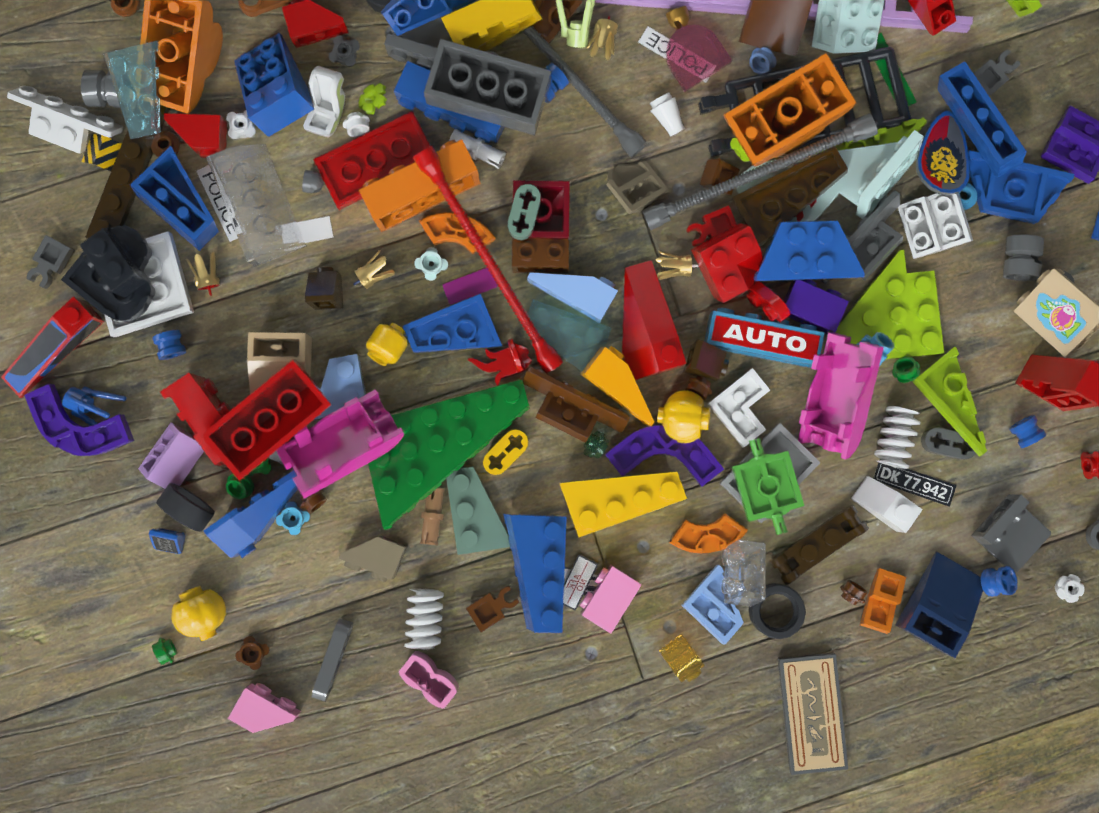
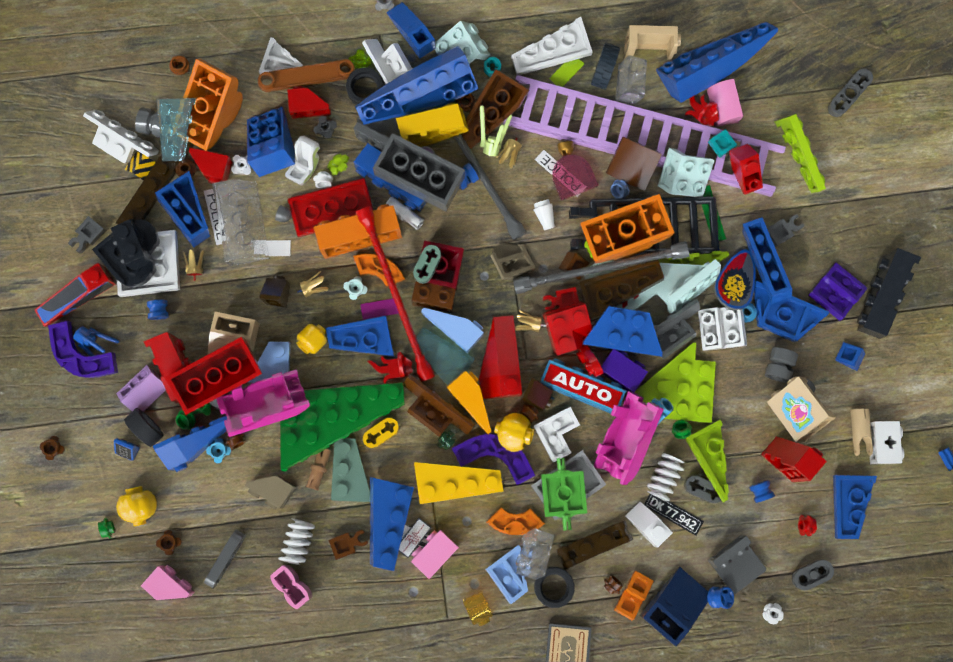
camera: 15 degrees right, 5 degrees down
(59, 561) = (46, 445): none -> reddish brown plate

